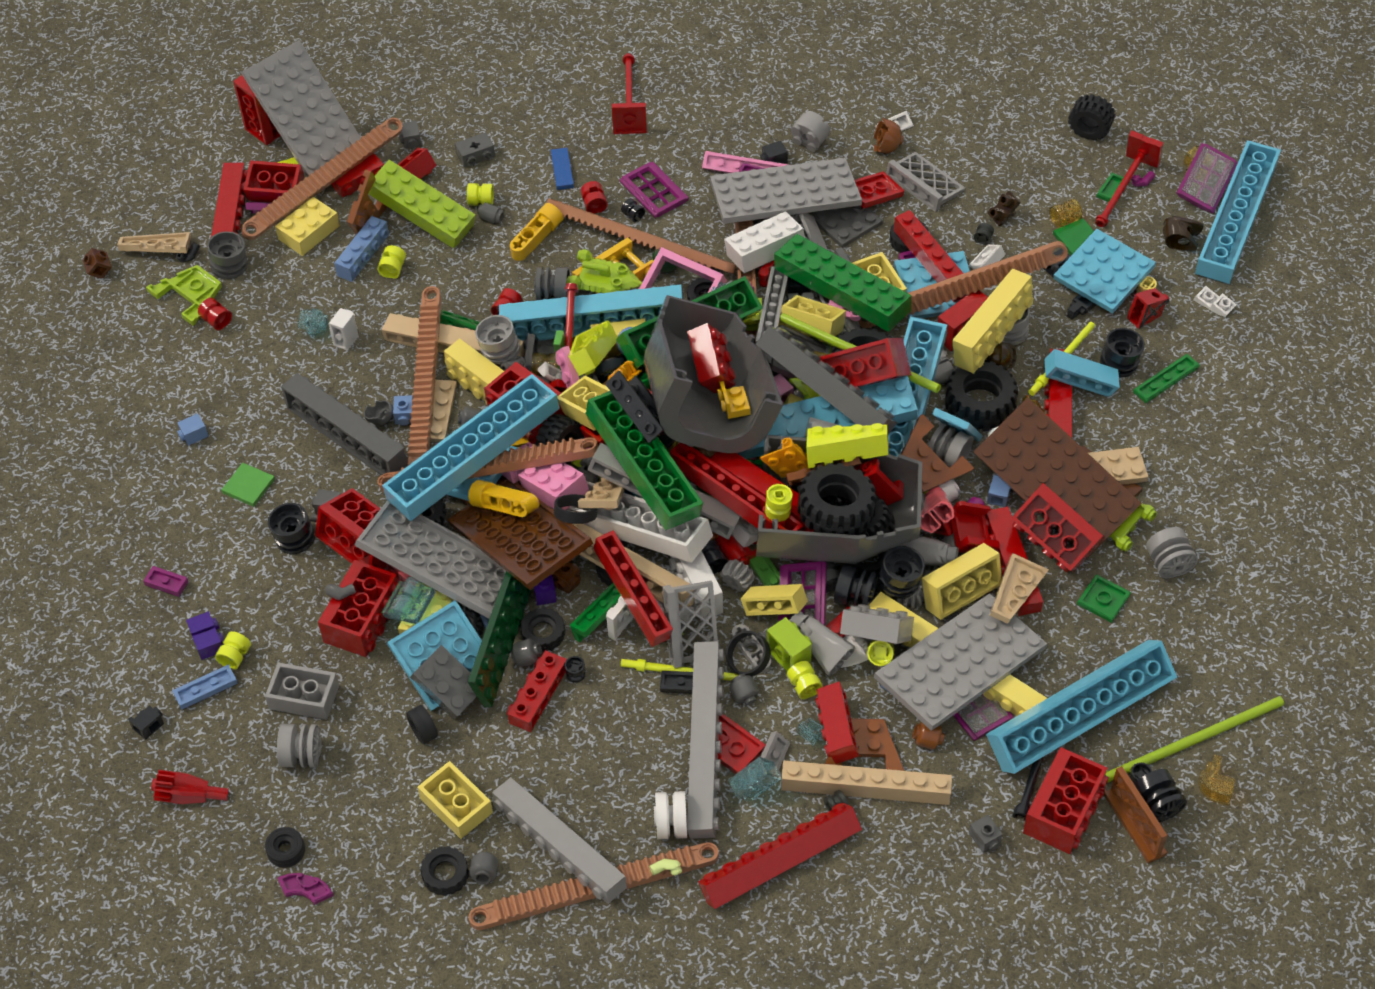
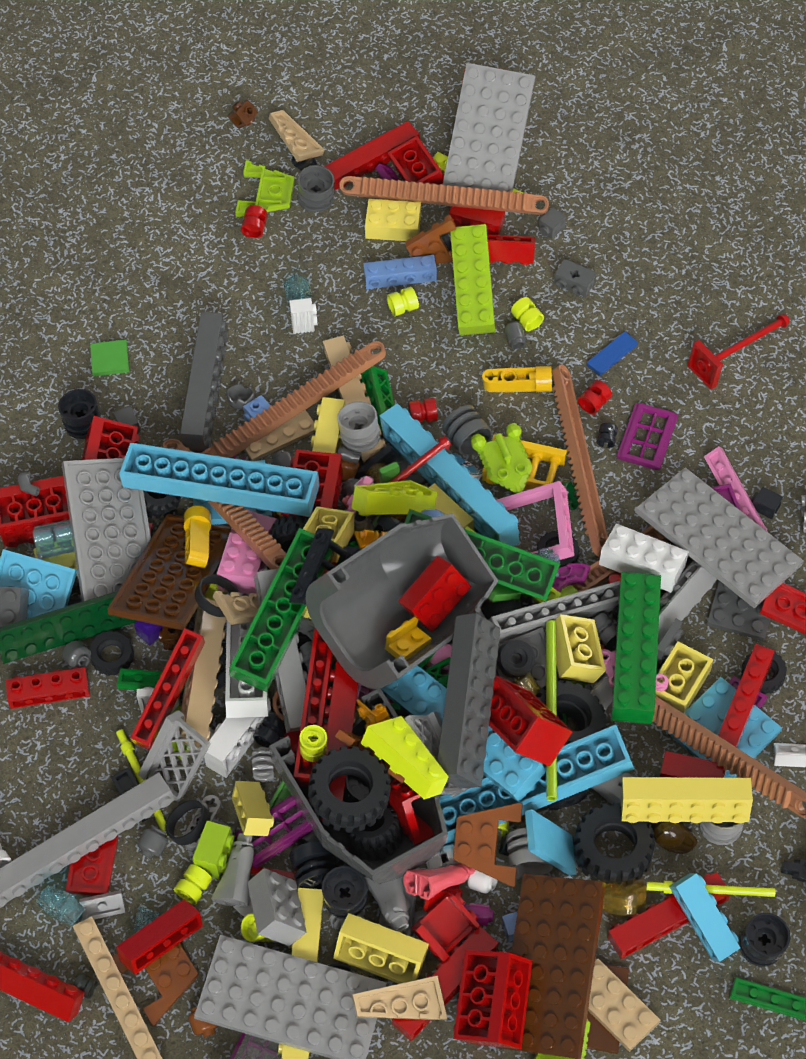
camera: 55 degrees right, 5 degrees up
(192, 429) = (131, 285): medium blue brick -> none
(575, 669) = (85, 697): black wheel -> none

